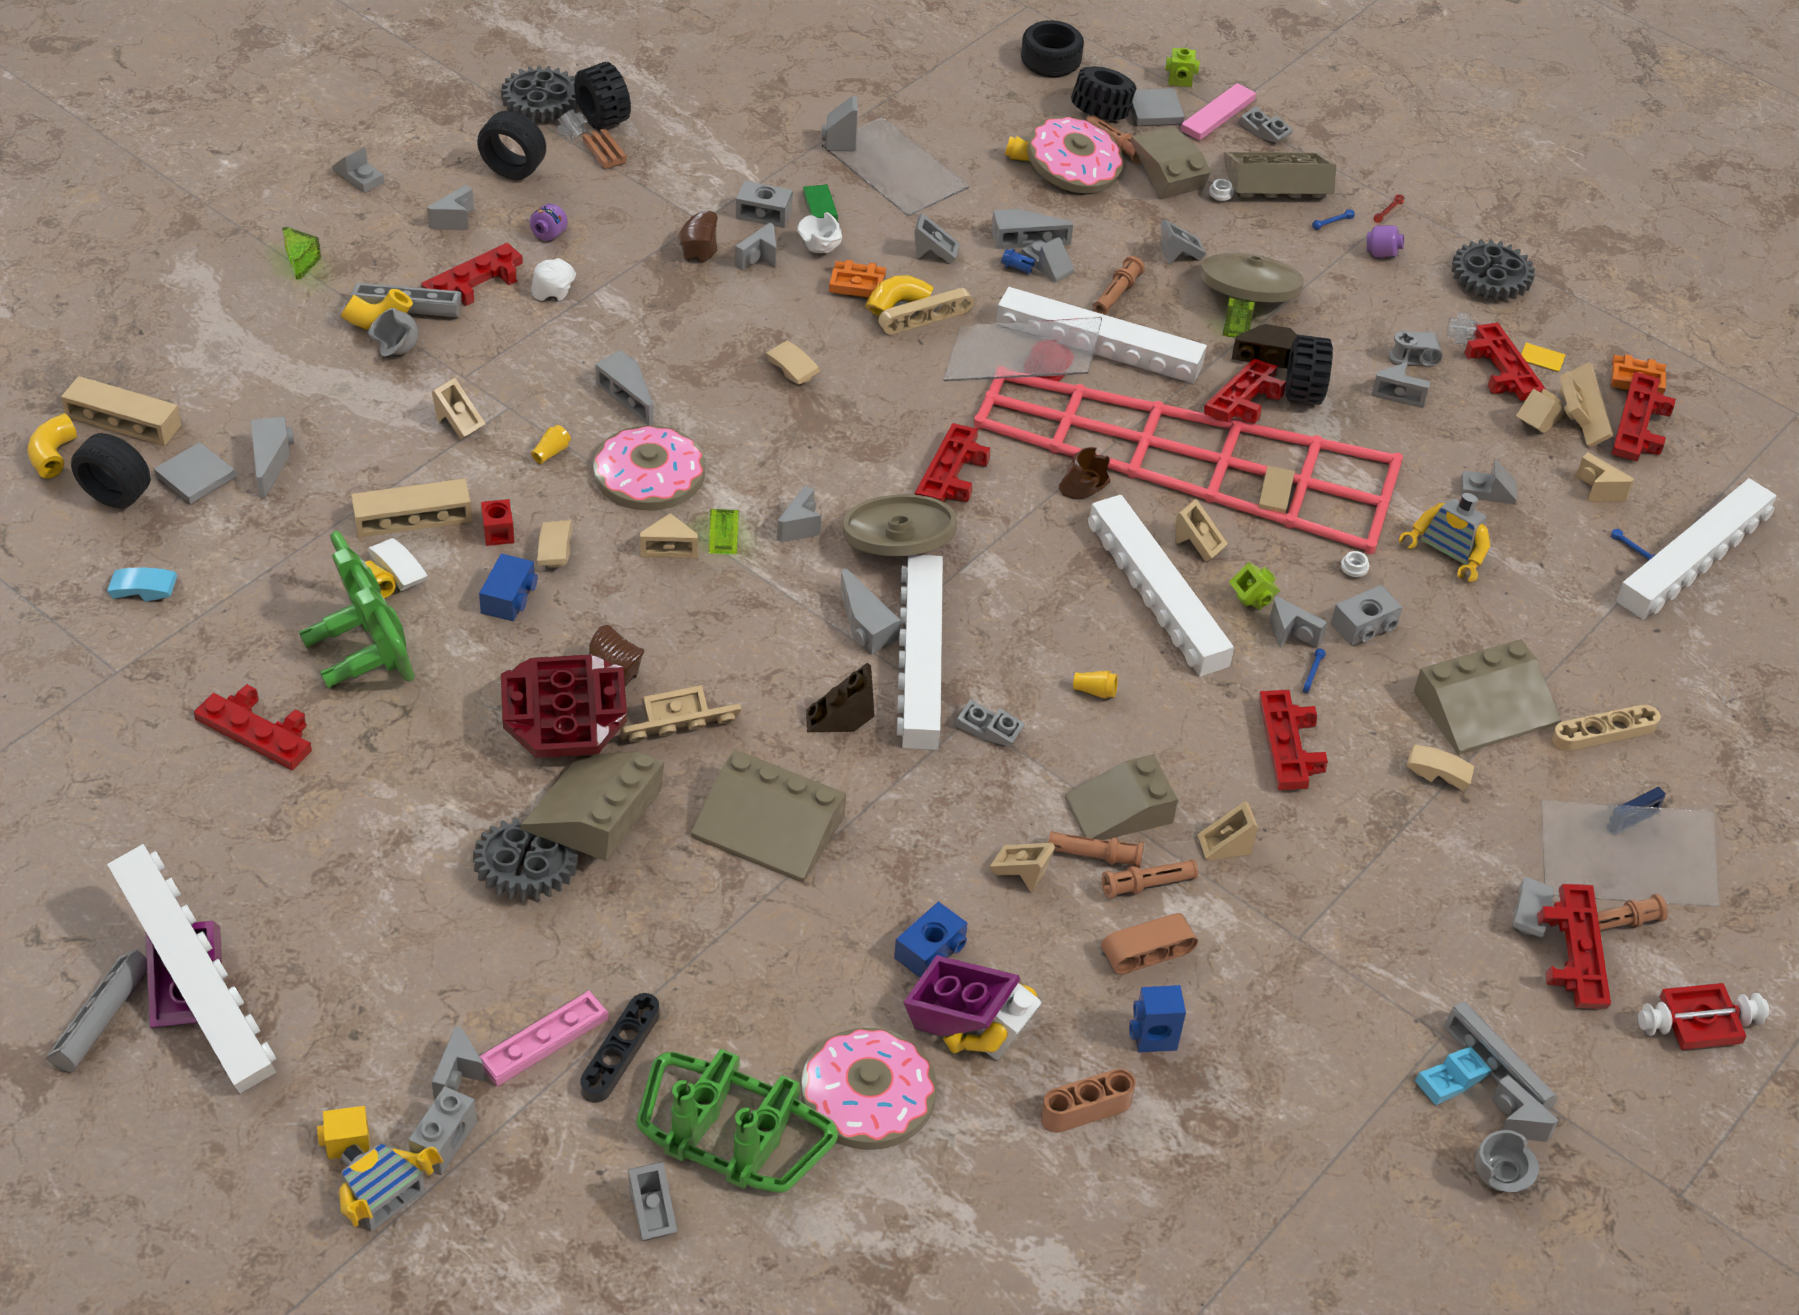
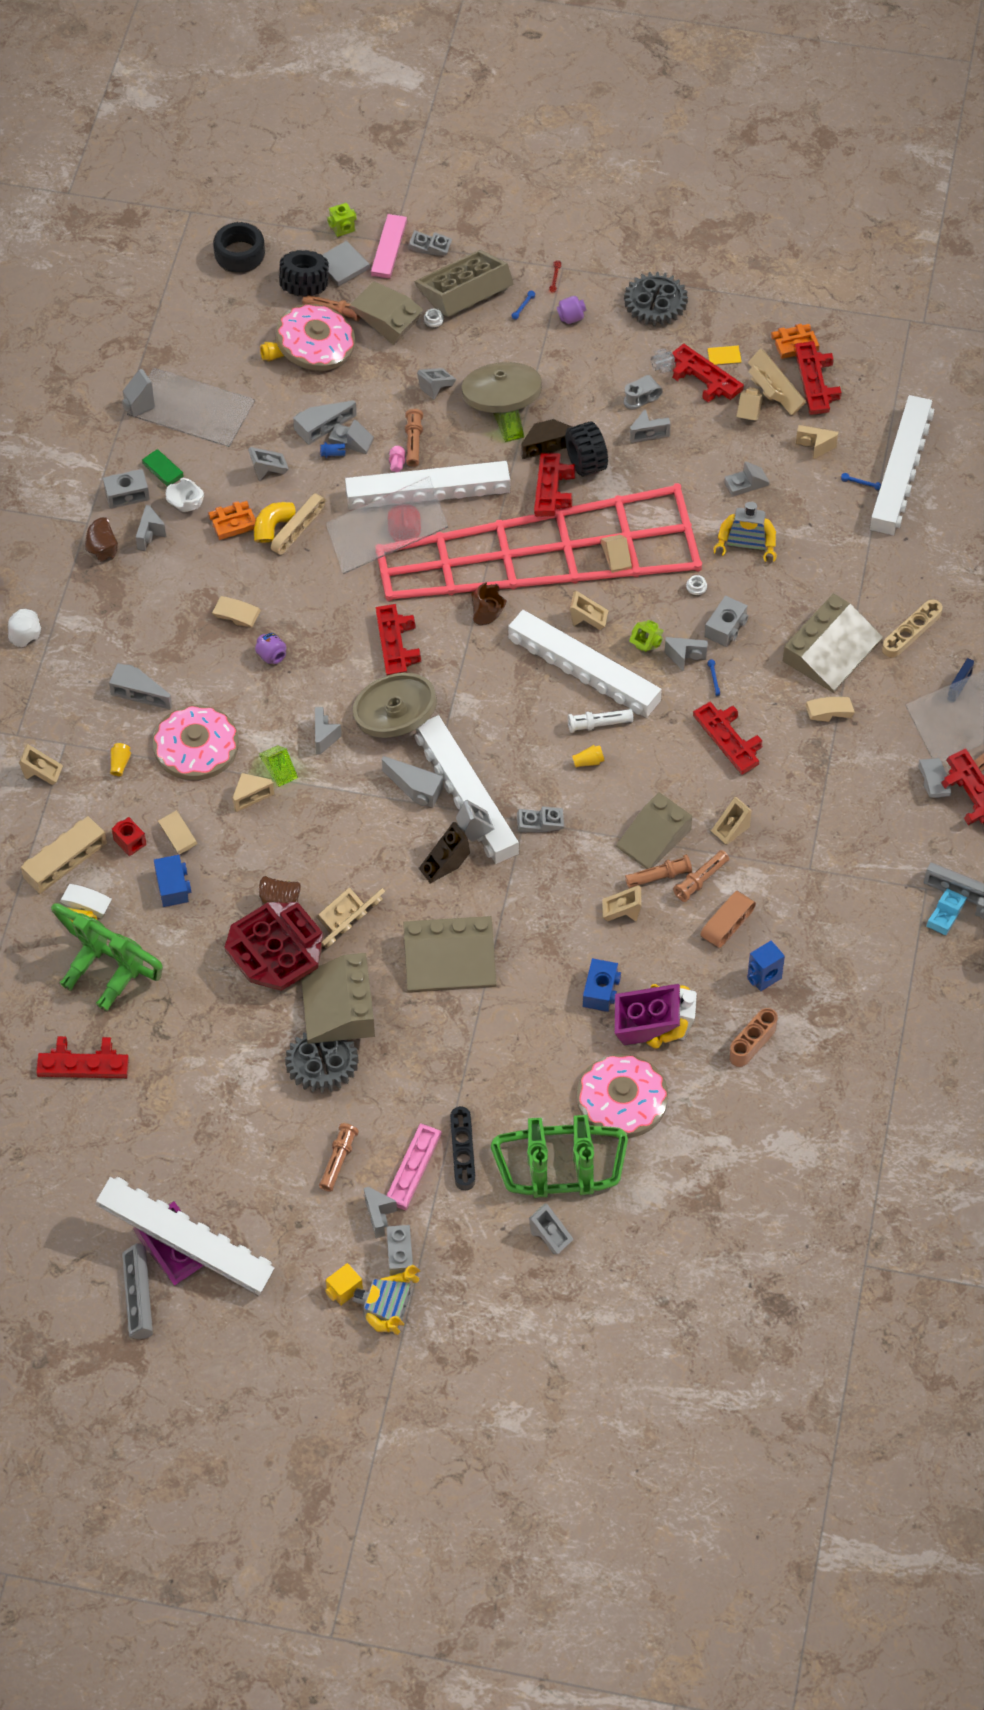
camera: 25 degrees left, 10 degrees up
(471, 970) = (341, 1148): none -> nougat pin
(802, 411) = (270, 648): none -> medium lavender head
(897, 677) = (474, 820): none -> light grey slope
(1085, 297) = (397, 458): none -> bright pink axle
(1125, 646) = (589, 720): none -> white pin

